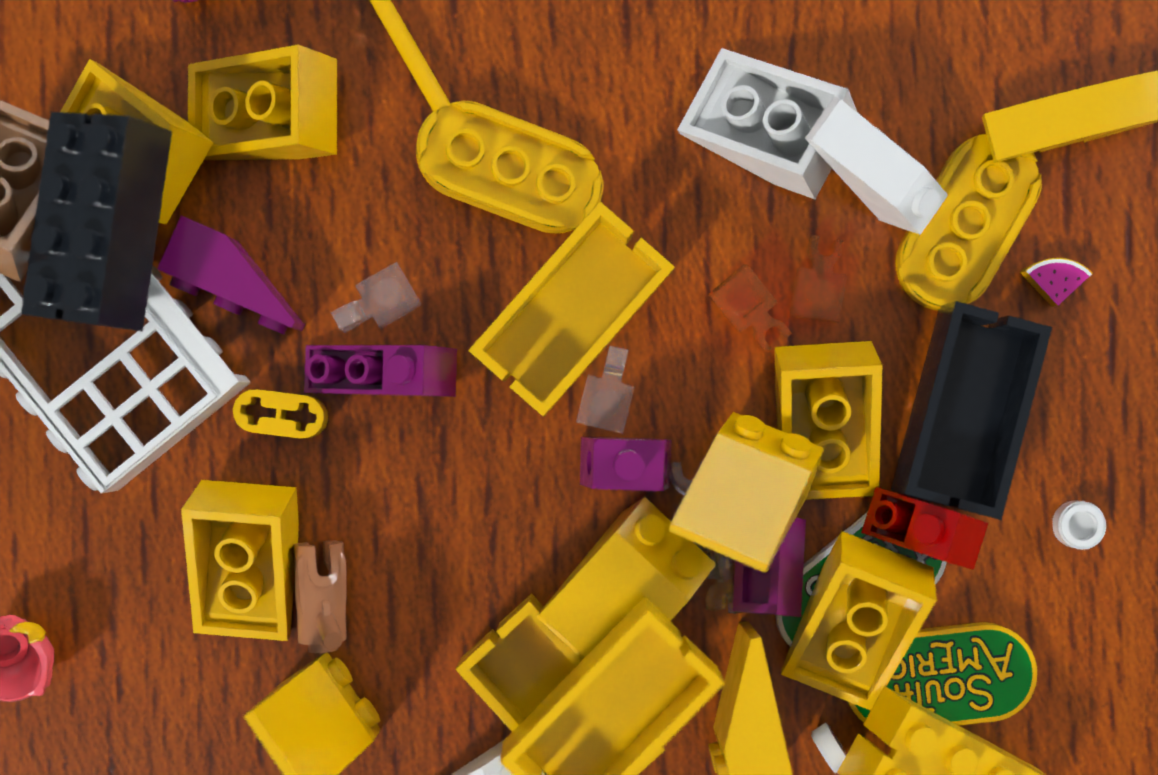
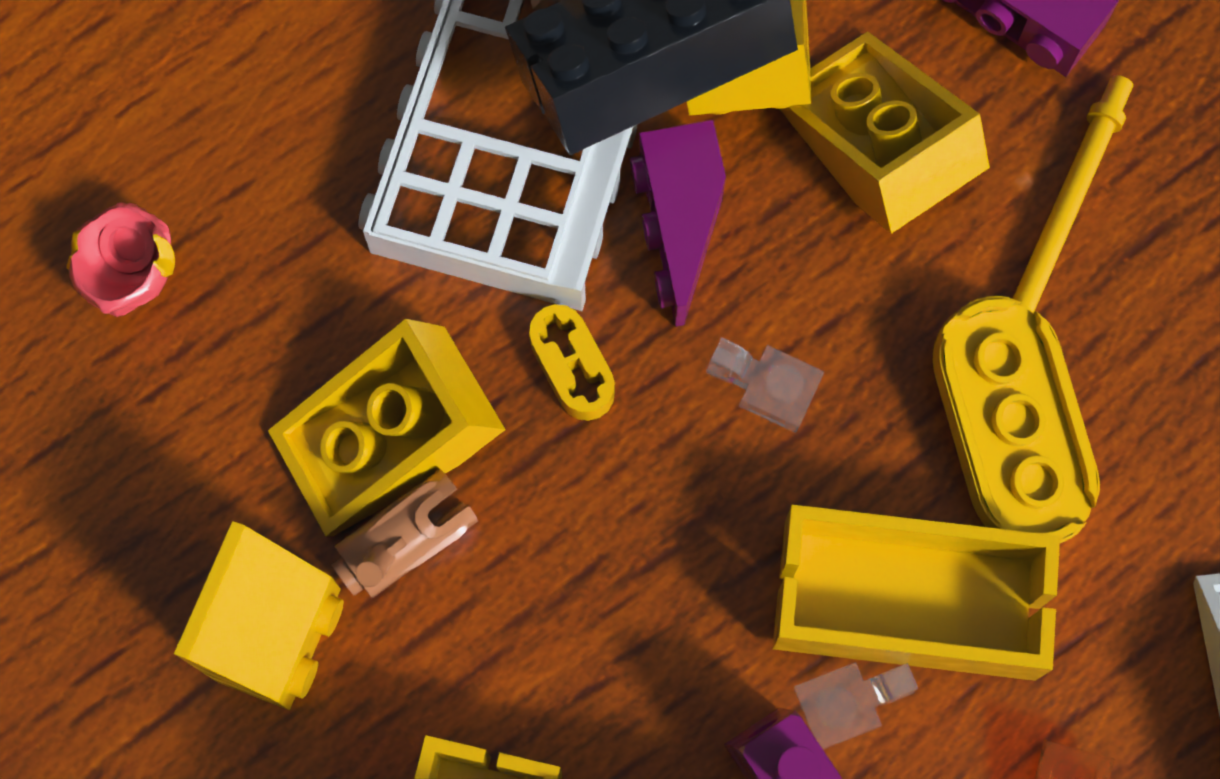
camera: 60 degrees right, 15 degrees down
(381, 370) = (698, 436): magenta slope -> none

